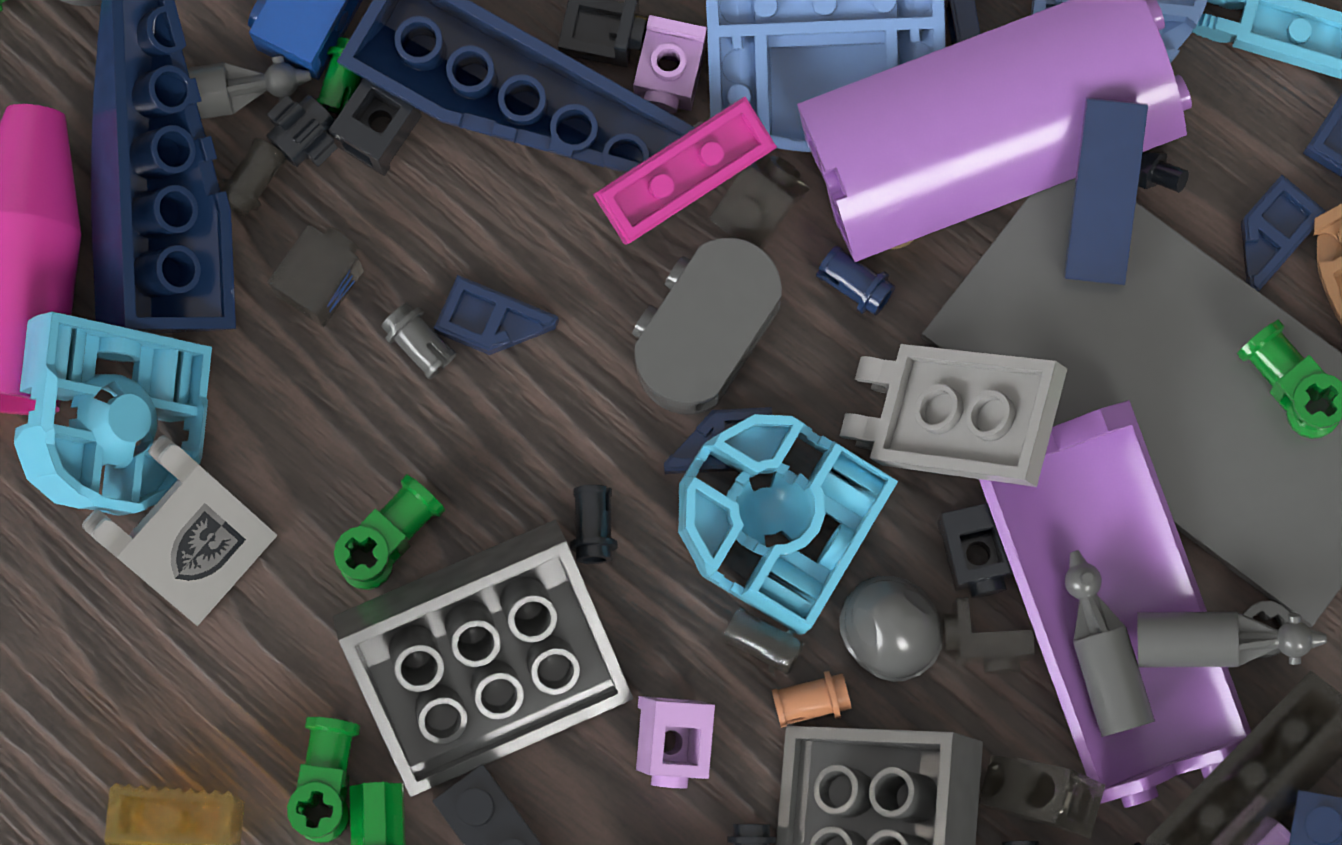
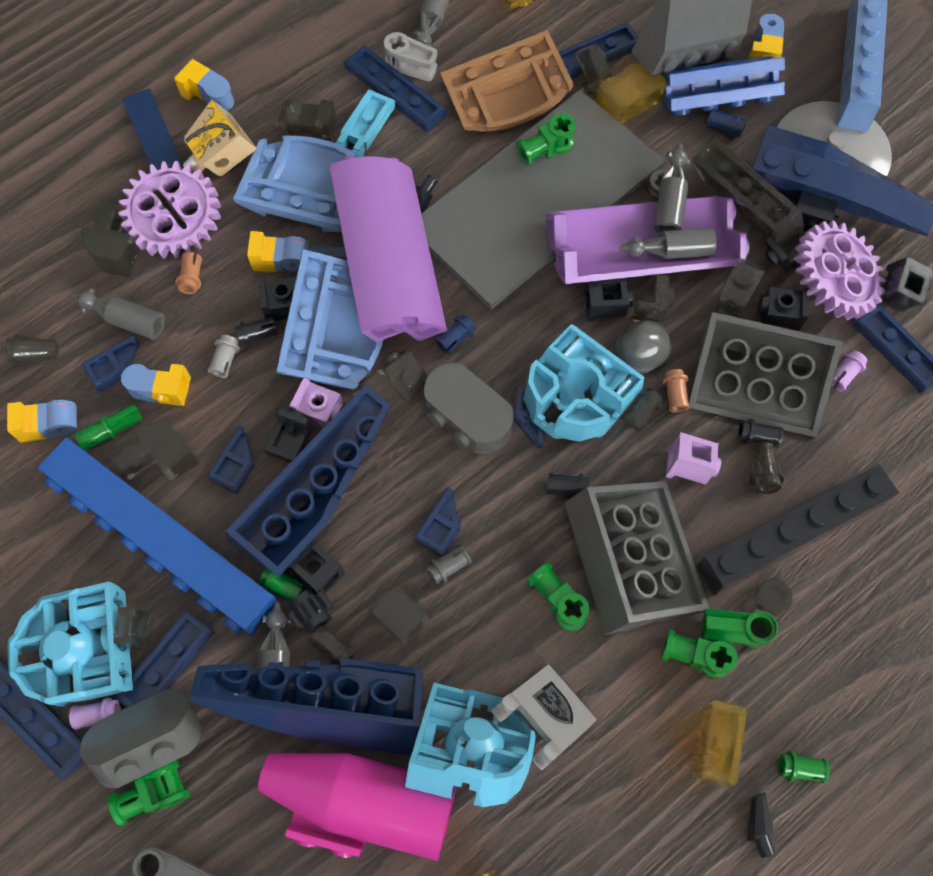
camera: 85 degrees left, 10 degrees down
(684, 170) = (384, 397): dark pink tile -> none
(960, 413) = (543, 283): light grey tile -> none
(1105, 190) = (436, 200): dark blue tile -> none
(1276, 230) = (463, 147): dark blue tile -> none

